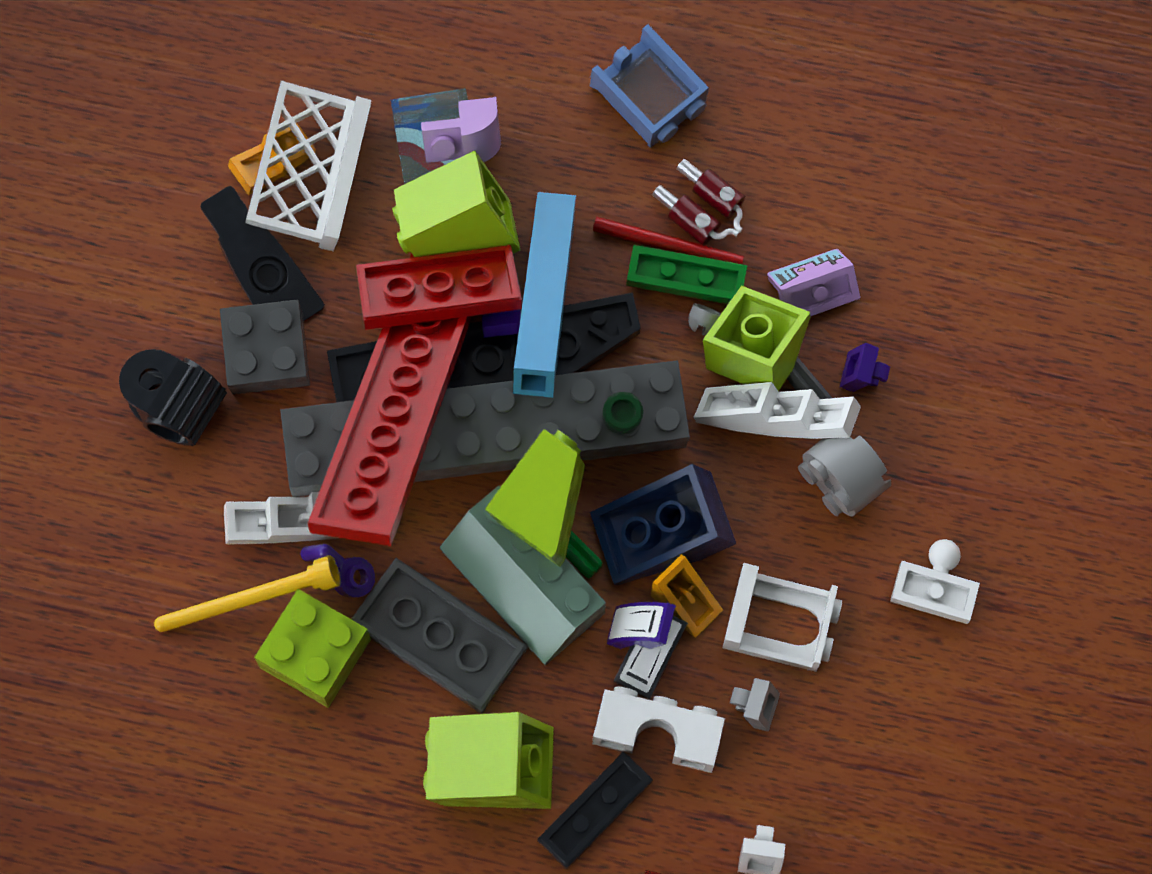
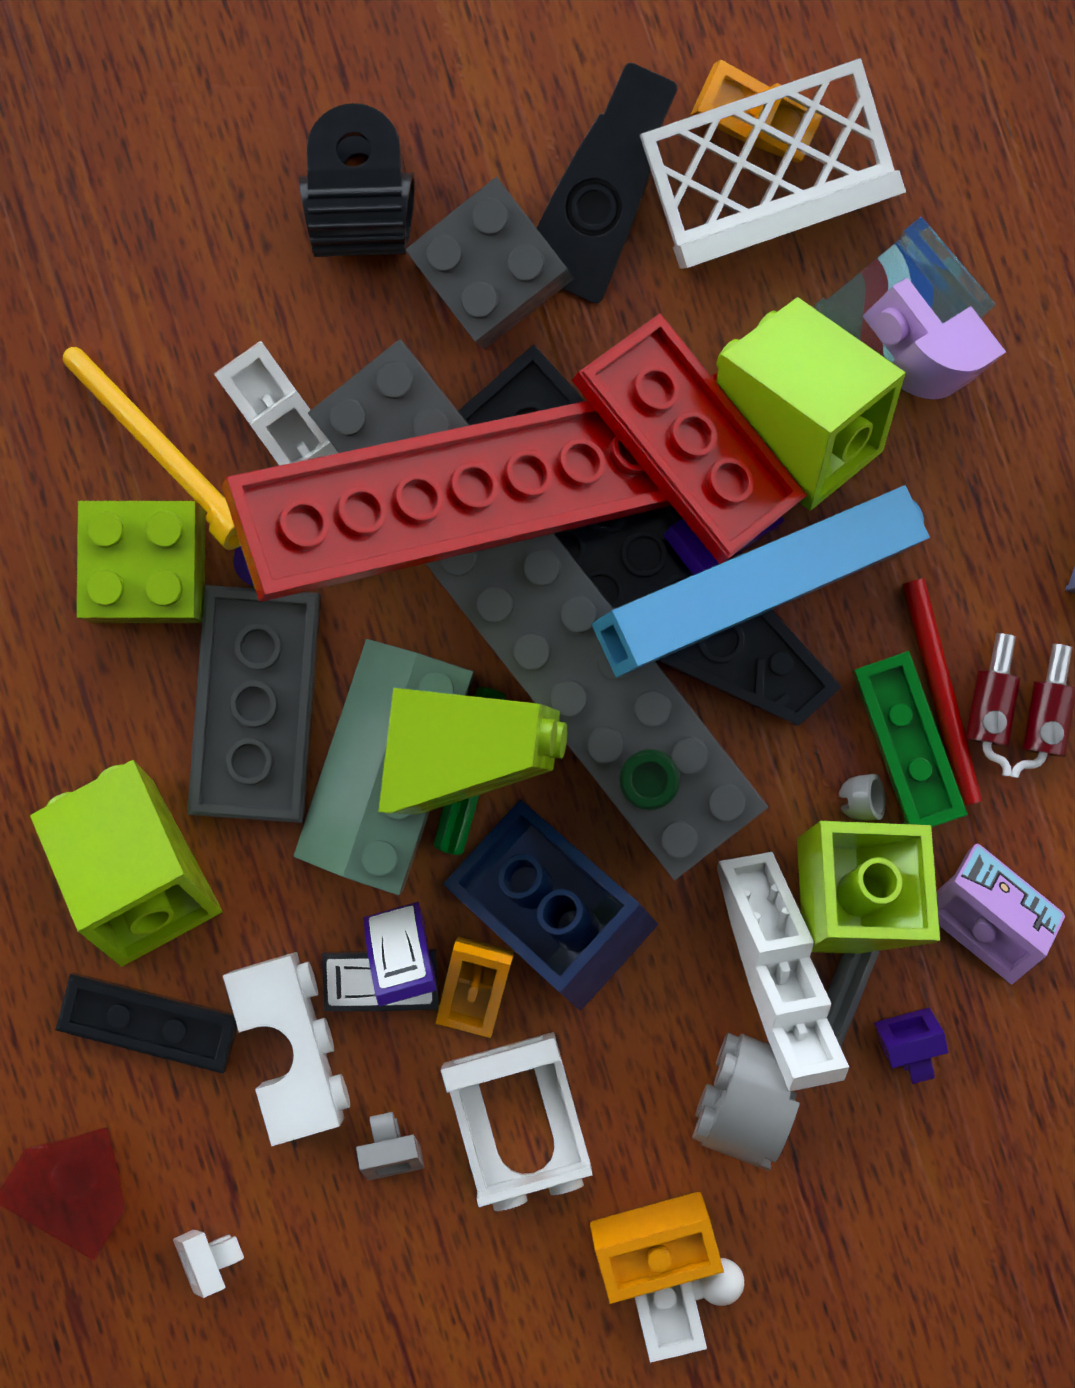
camera: 65 degrees right, 15 degrees up
(903, 576) = (655, 1247): none -> light orange panel

